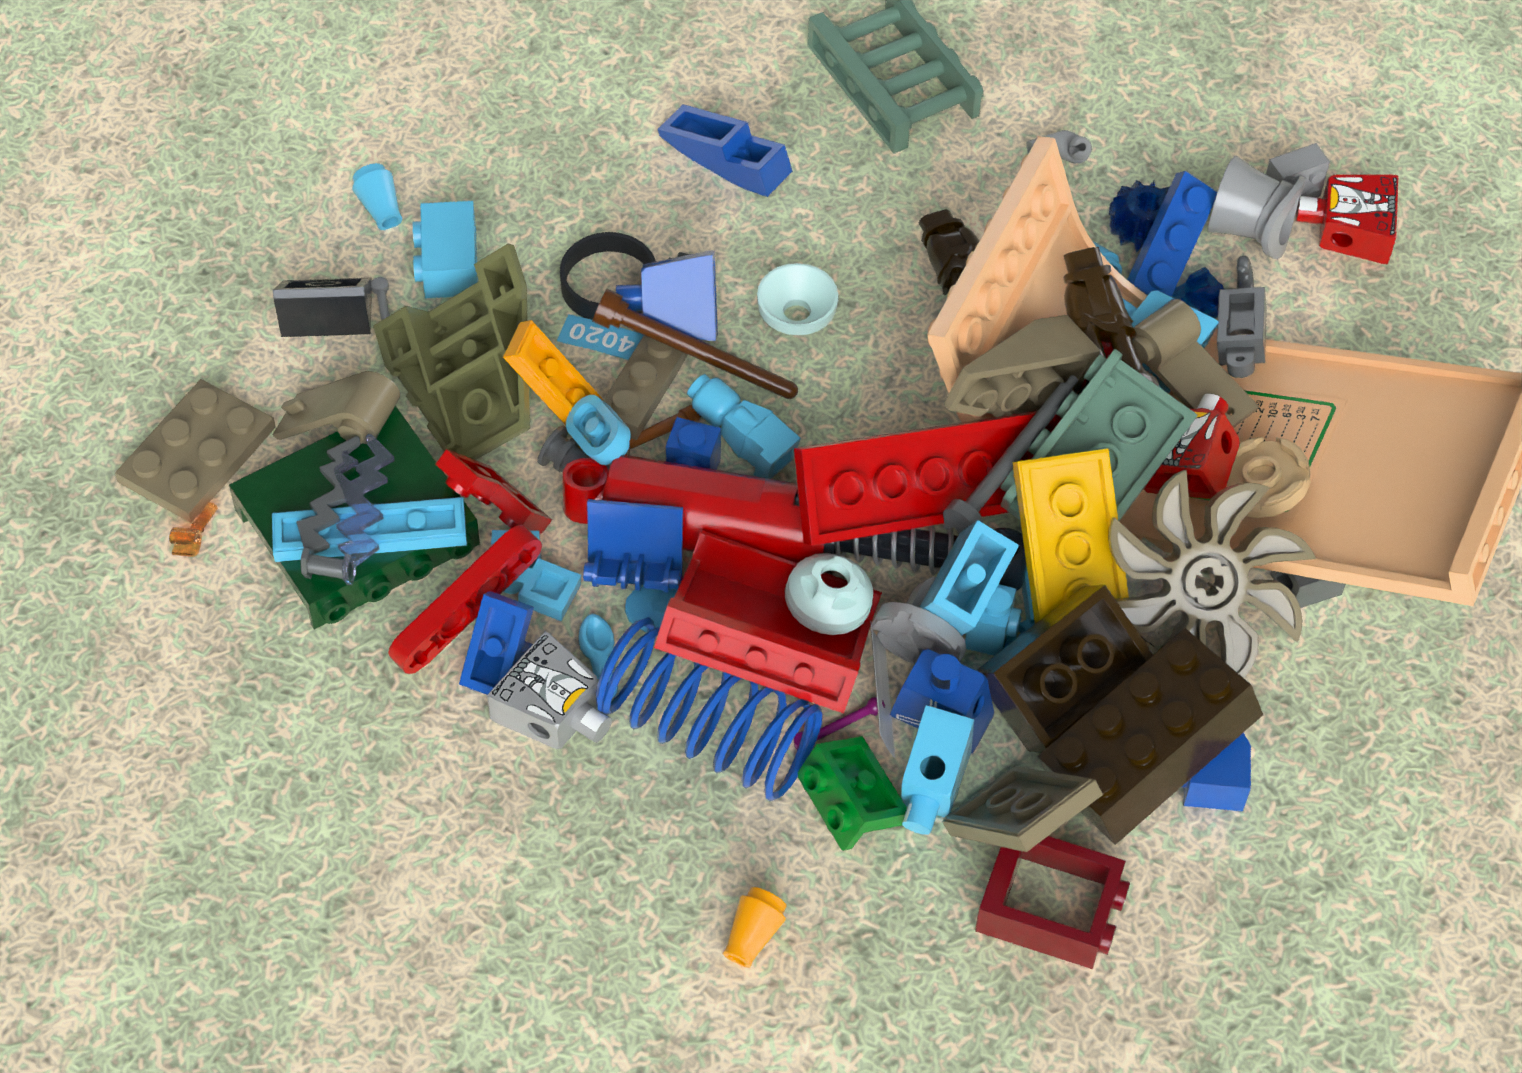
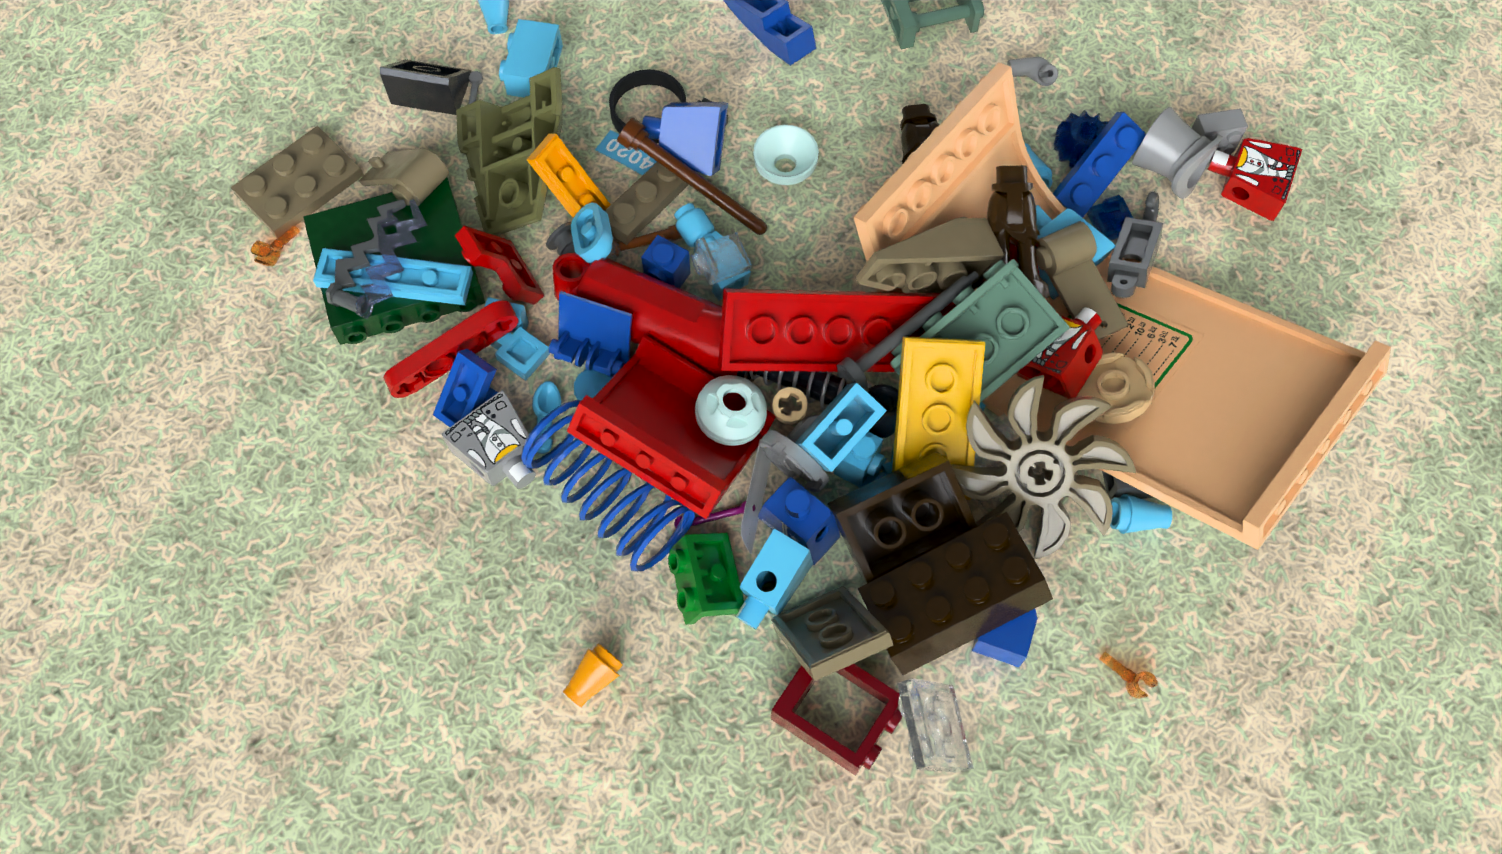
camera: 15 degrees right, 10 degrees up
(763, 427) = (720, 258): none -> clear bracket
(886, 565) = (784, 395): none -> tan bush
(1172, 889) = (934, 726): none -> clear plate
(1331, 614) = (1137, 514): none -> medium azure cone
(1375, 795) = (1130, 677): none -> clear orange hand

